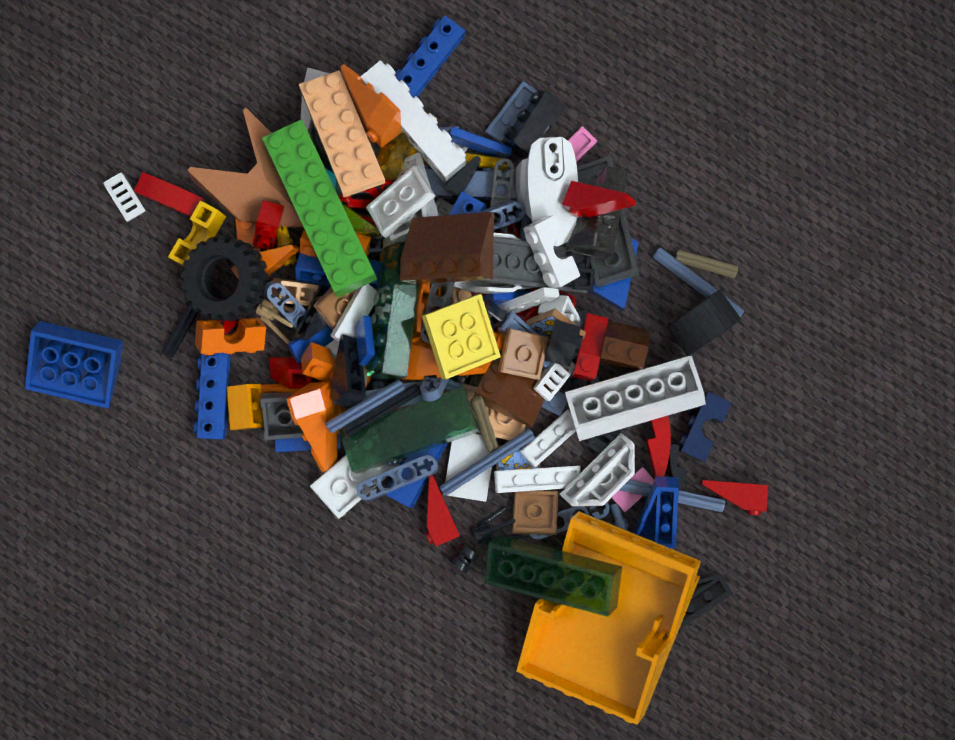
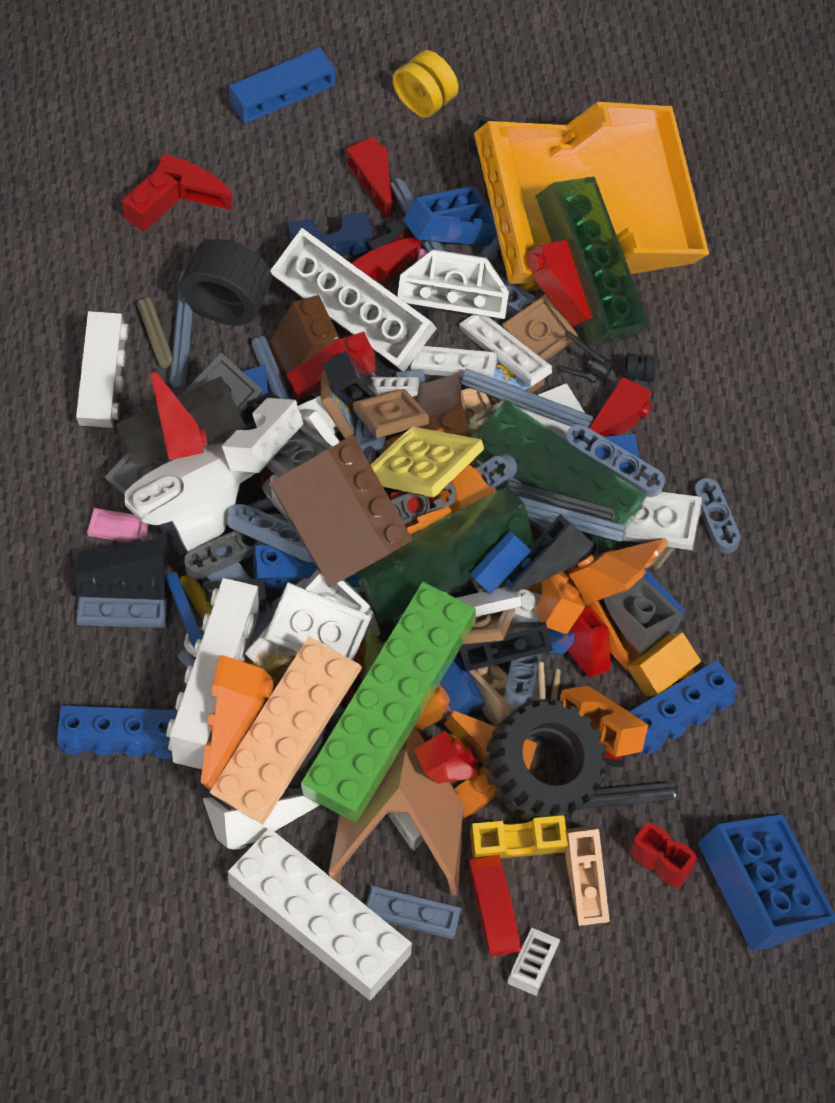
camera: 130 degrees left, 25 degrees down
(121, 315) = (658, 852): none -> red brick
(152, 262) = (586, 875): none -> light nougat slope
(202, 150) = (414, 912): none -> sand blue tile
(227, 94) = (319, 913): none -> white brick
(339, 535) = (715, 527): none -> sand blue beam
(559, 540) = (558, 277): none -> red slope
(616, 315) = (273, 374): none -> sand blue axle
(694, 206) = (101, 369): none -> white wedge
(788, 582) = (425, 83): none -> yellow wheel
(813, 365) = (196, 183): none -> red slope
(815, 326) = (150, 200): none -> red brick
(857, 481) = (281, 85): none -> blue brick

